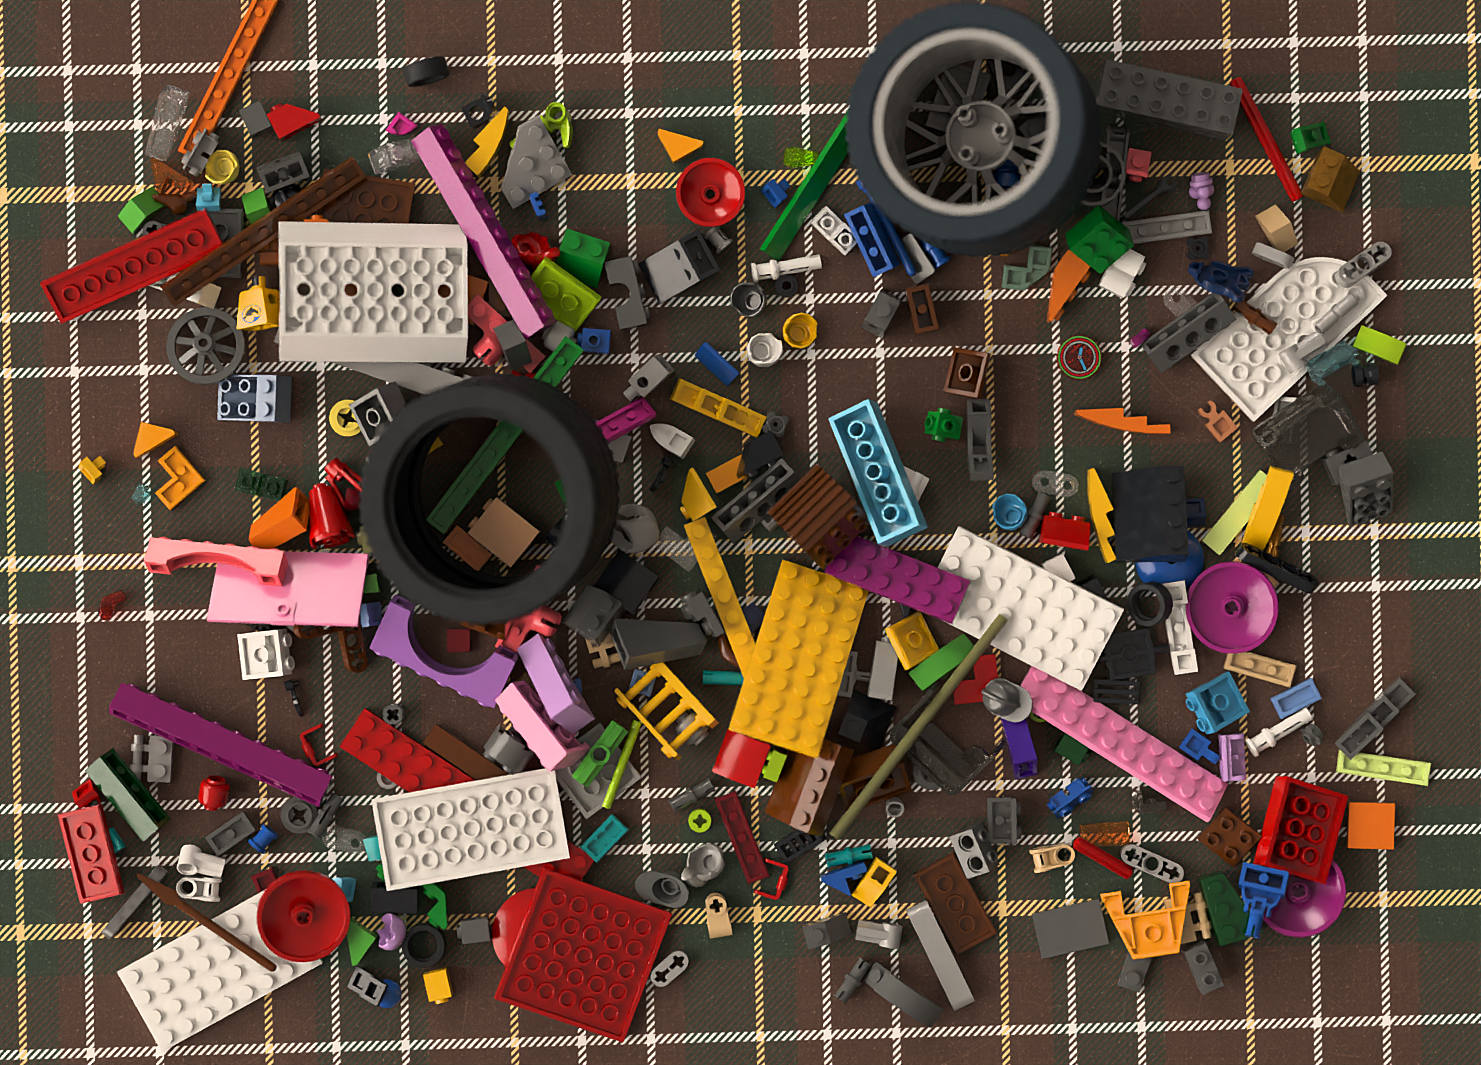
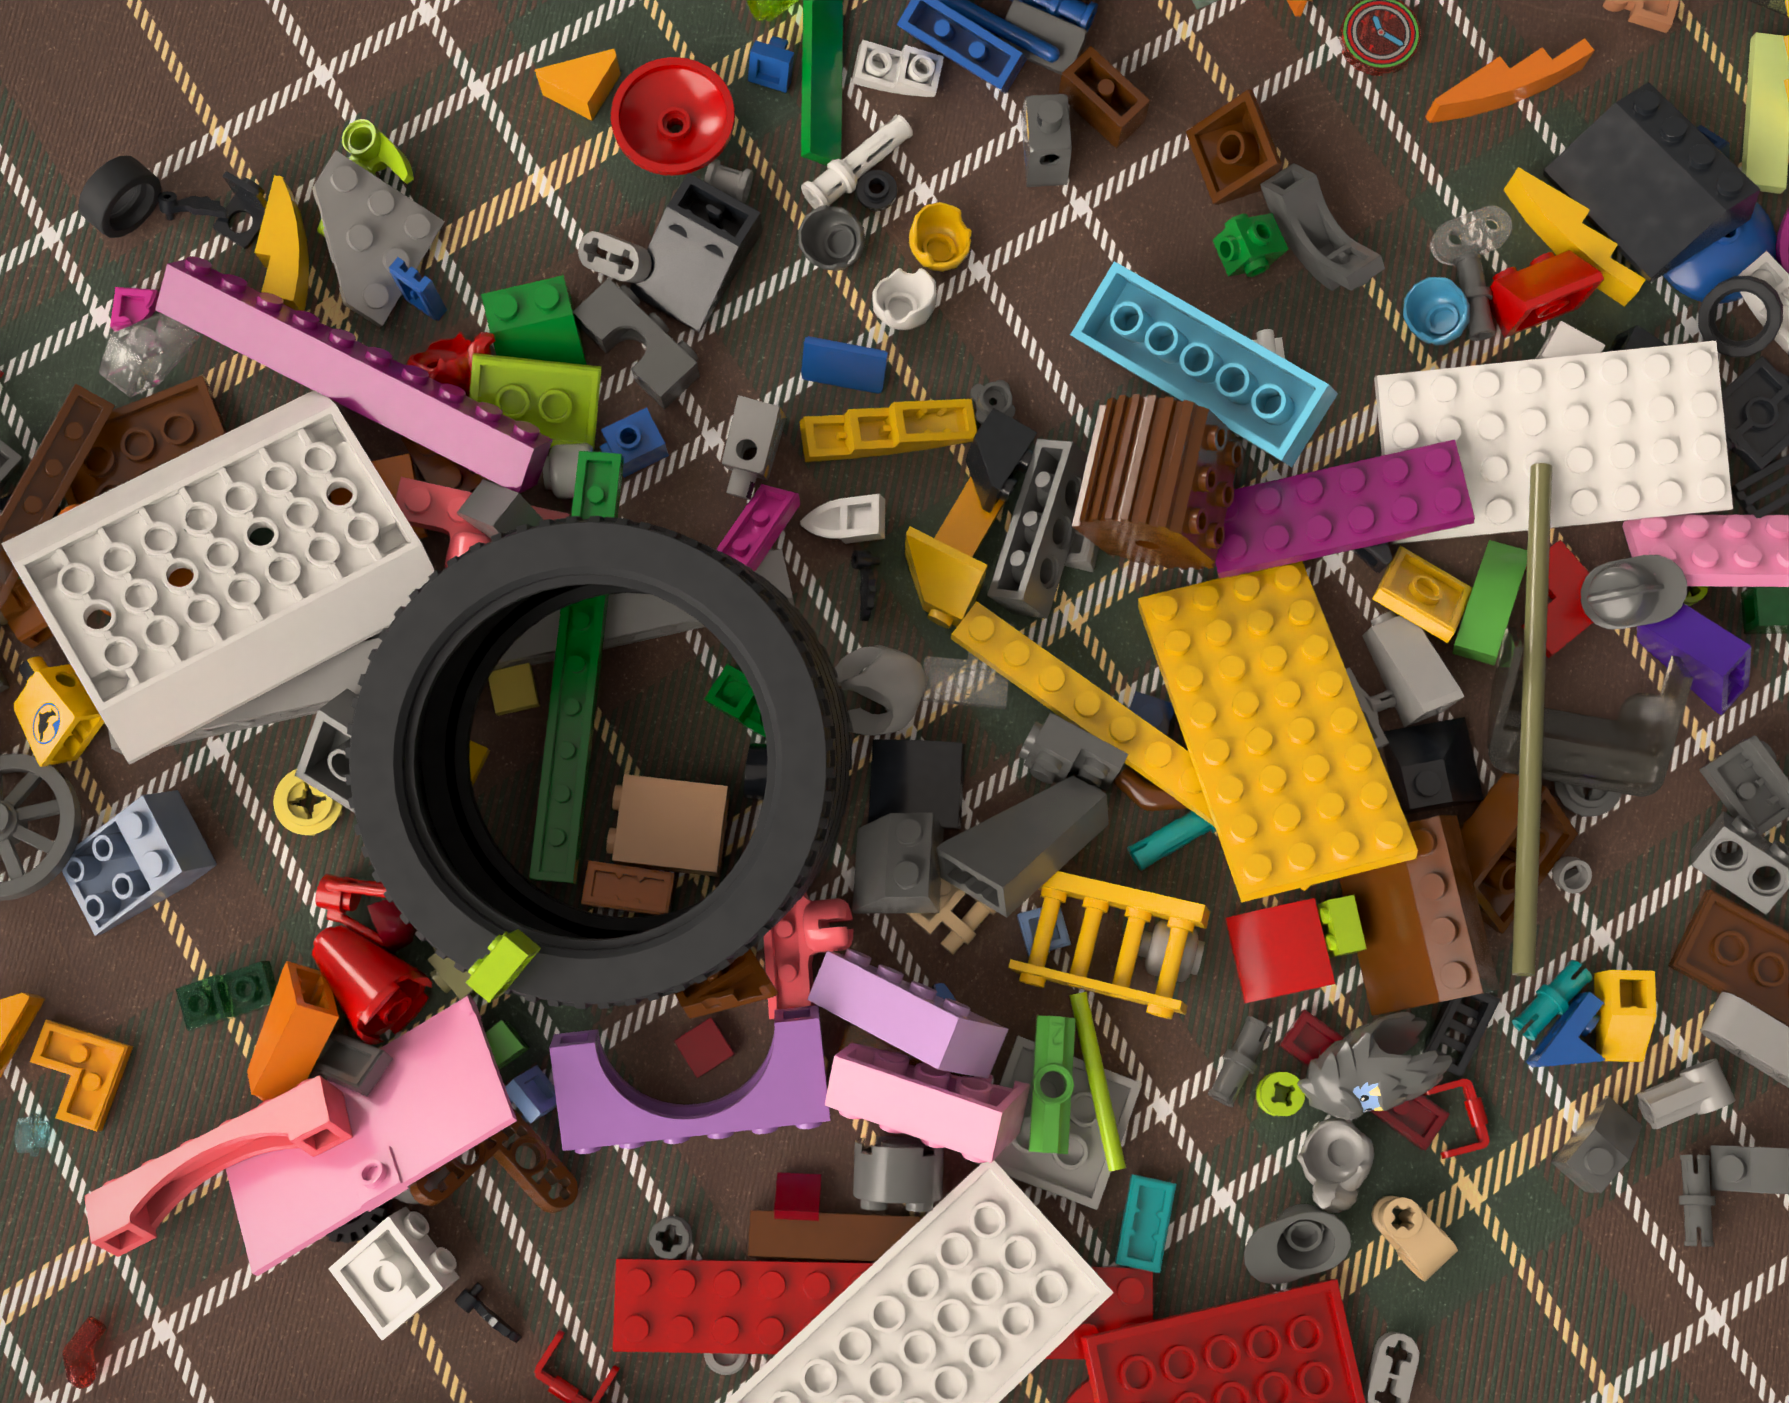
camera: 30 degrees left, 10 degrees down
(299, 552) = (351, 1063): none -> dark grey tile
(394, 566) = (500, 968): none -> lime piece
(459, 731) = (797, 1196): none -> dark red tile
(460, 93) = (196, 205): none -> black piece
(470, 425) = (513, 689): none -> light yellow tile
(644, 242) = (612, 264): none -> light grey beam
(741, 835) = (1370, 1070): none -> dark grey head

